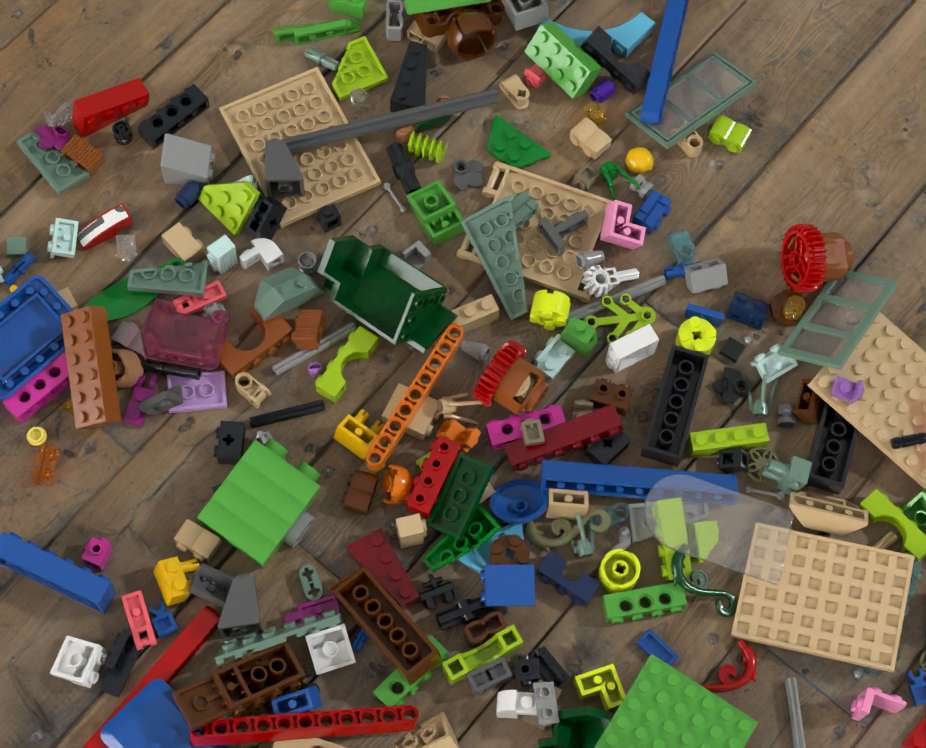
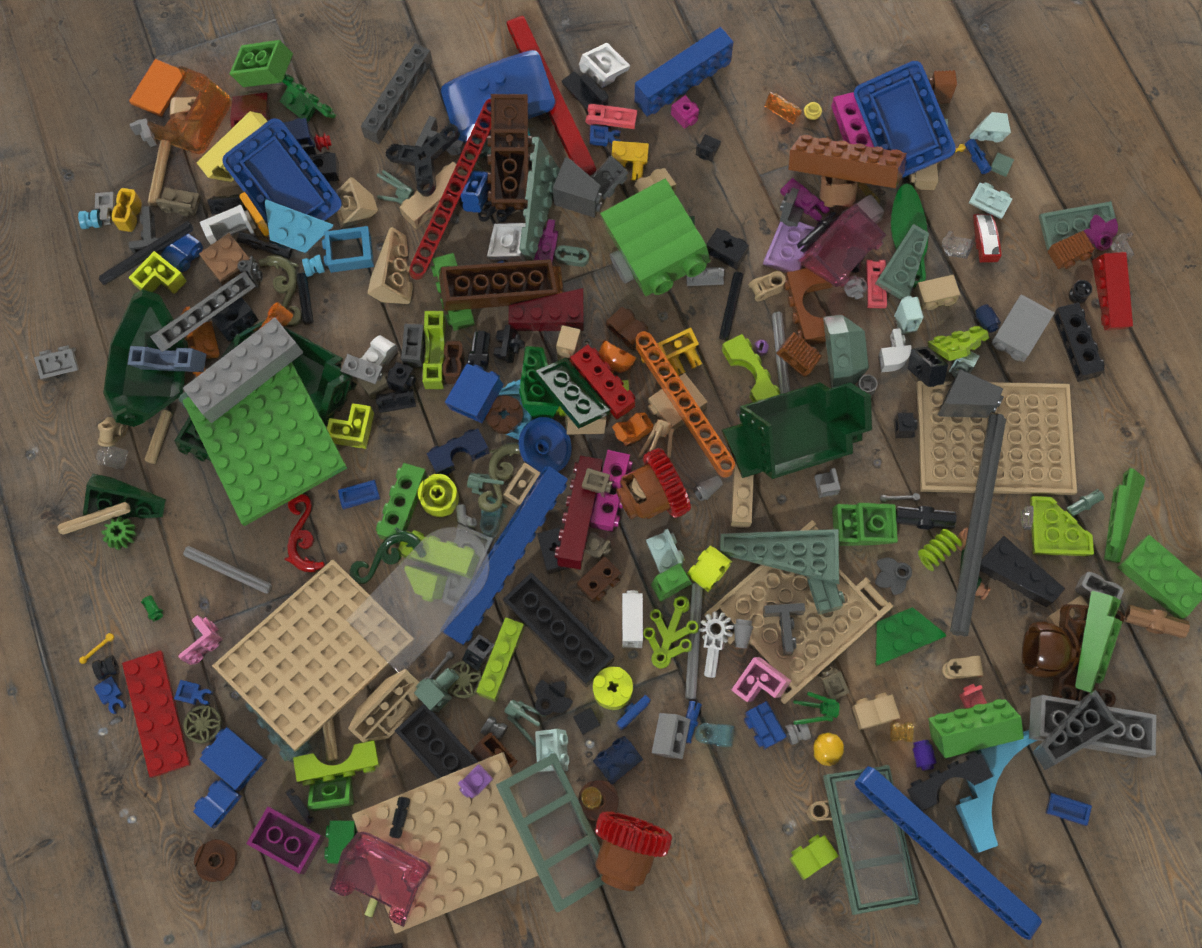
camera: 125 degrees right, 5 degrees up
(126, 514) = (708, 148): none -> black bracket

